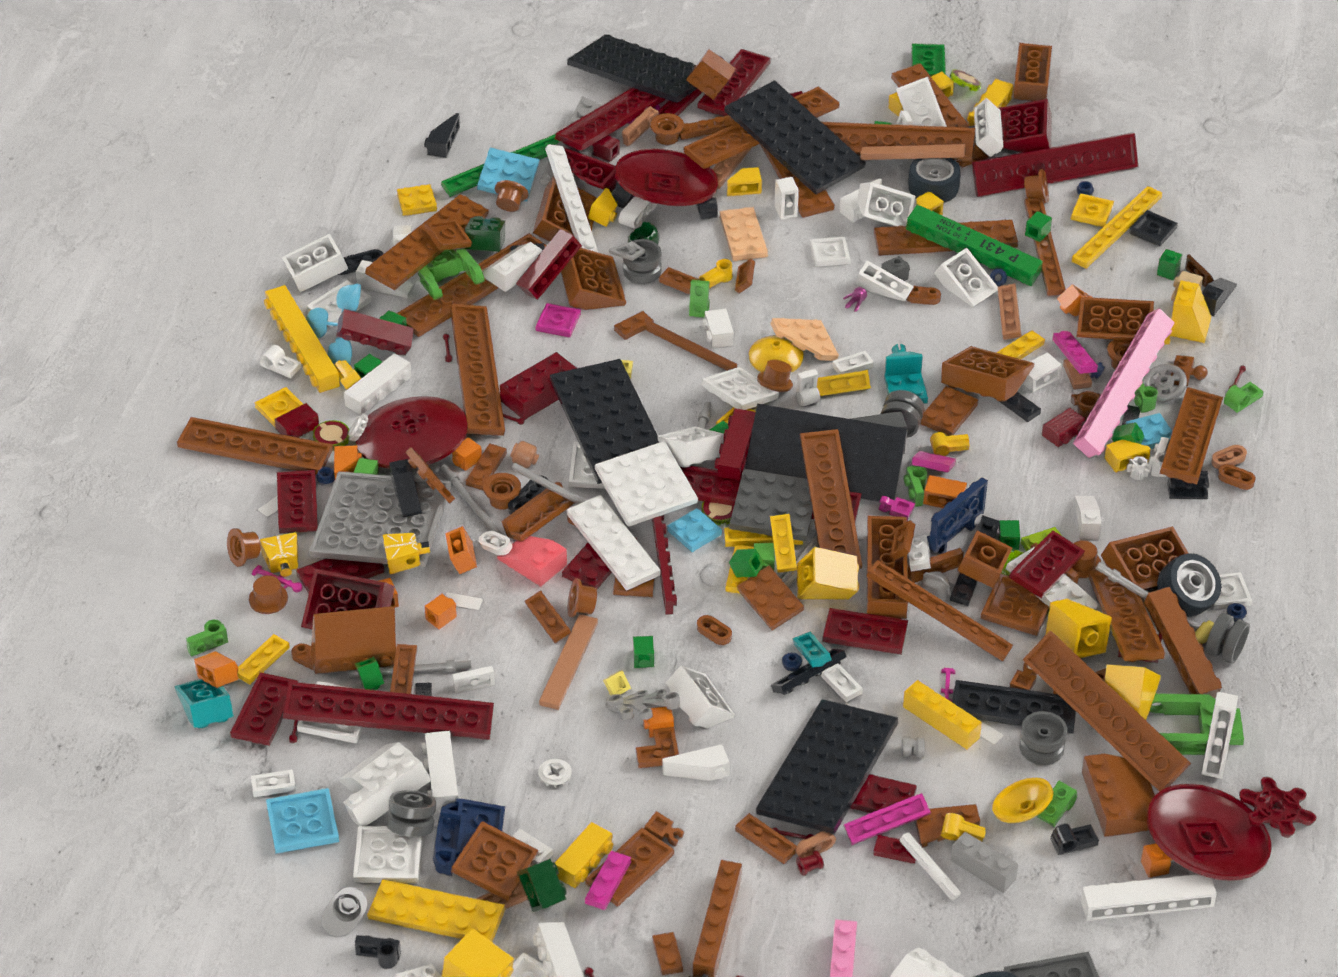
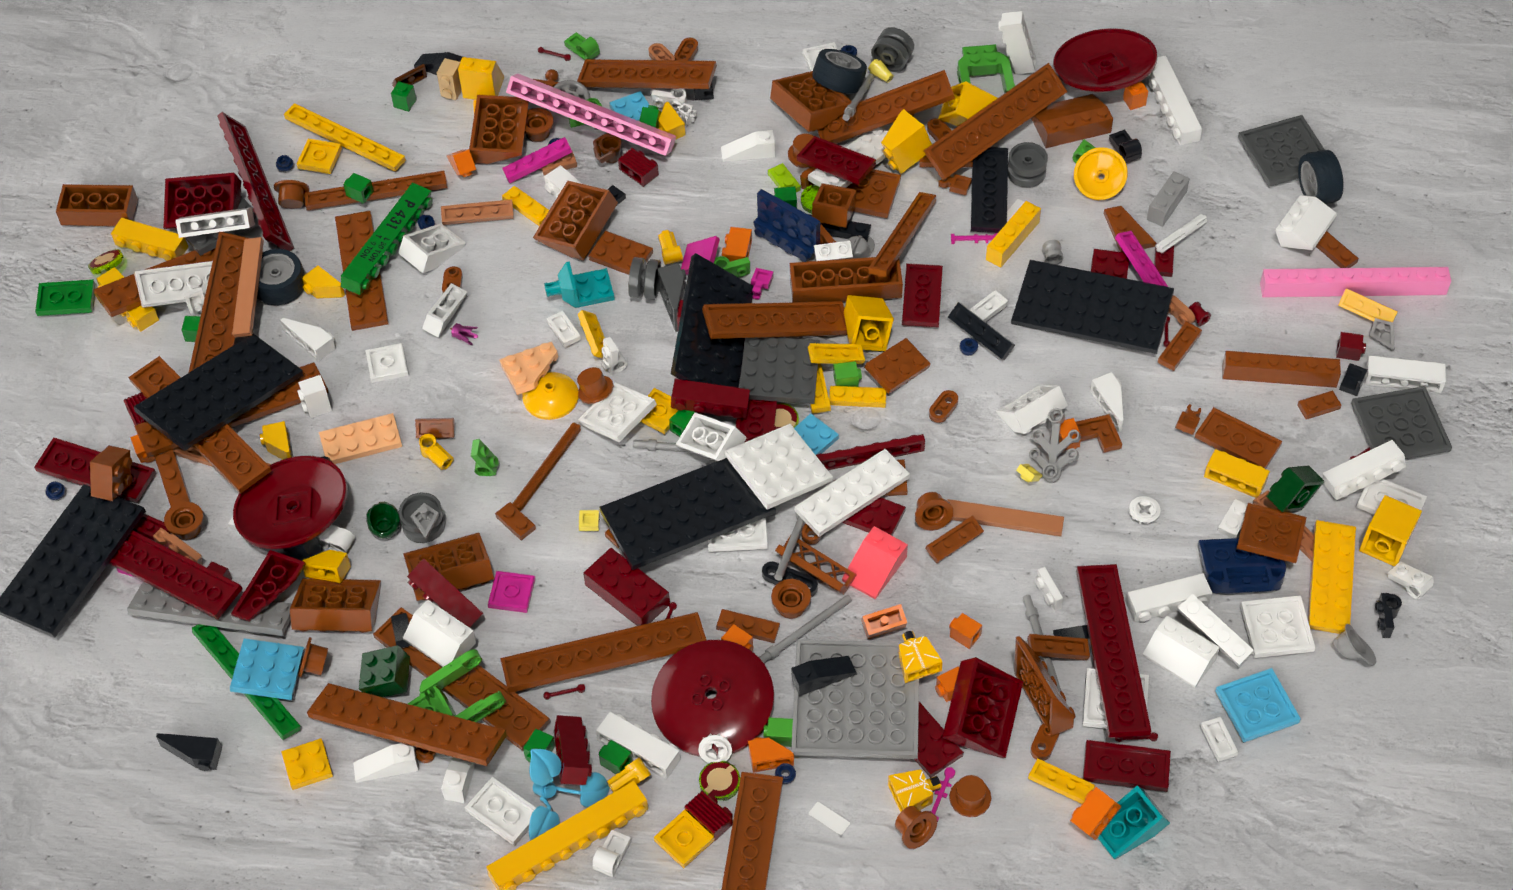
camera: 95 degrees left, 10 degrees up
(213, 636) = (1054, 843): bright green plate -> none
(297, 501) = (831, 792): dark red plate -> none
(315, 263) = (446, 840): white brick -> none
(354, 261) = (425, 797): black plate -> none
(369, 674) = (1067, 674): green brick -> none
(411, 813) = (1238, 605): dark grey wheel -> none
(426, 472) = (798, 655): dark orange wing -> none
(447, 235) = (405, 697): dark orange plate -> none
(465, 601) = (939, 620): white sticker -> none
(495, 543) = (864, 596): white plate -> none
(524, 454) = (732, 589): nougat head -> none
(570, 197) = (326, 591): white plate -> none
(607, 880) = (1264, 448): dark pink plate -> none
(643, 651) = (985, 456): green brick -> none
(676, 280) = (445, 484): dark orange plate -> none
(718, 328) = (520, 442): white brick -> none
(746, 563) = (869, 379): green brick -> none
(812, 649) = (961, 325): teal plate -> none
(885, 204) = (327, 310): white slope -> none
(897, 267) = (420, 302): dark grey brick -> none
(902, 540) = (829, 257): dark orange plate -> none
(955, 826) = (1140, 214): yellow piece -> none
(1153, 228) = (346, 110): black plate -> none
(1181, 643) = (888, 78): dark orange brick -> none
(1271, 797) = (1061, 26): dark red plate -> none

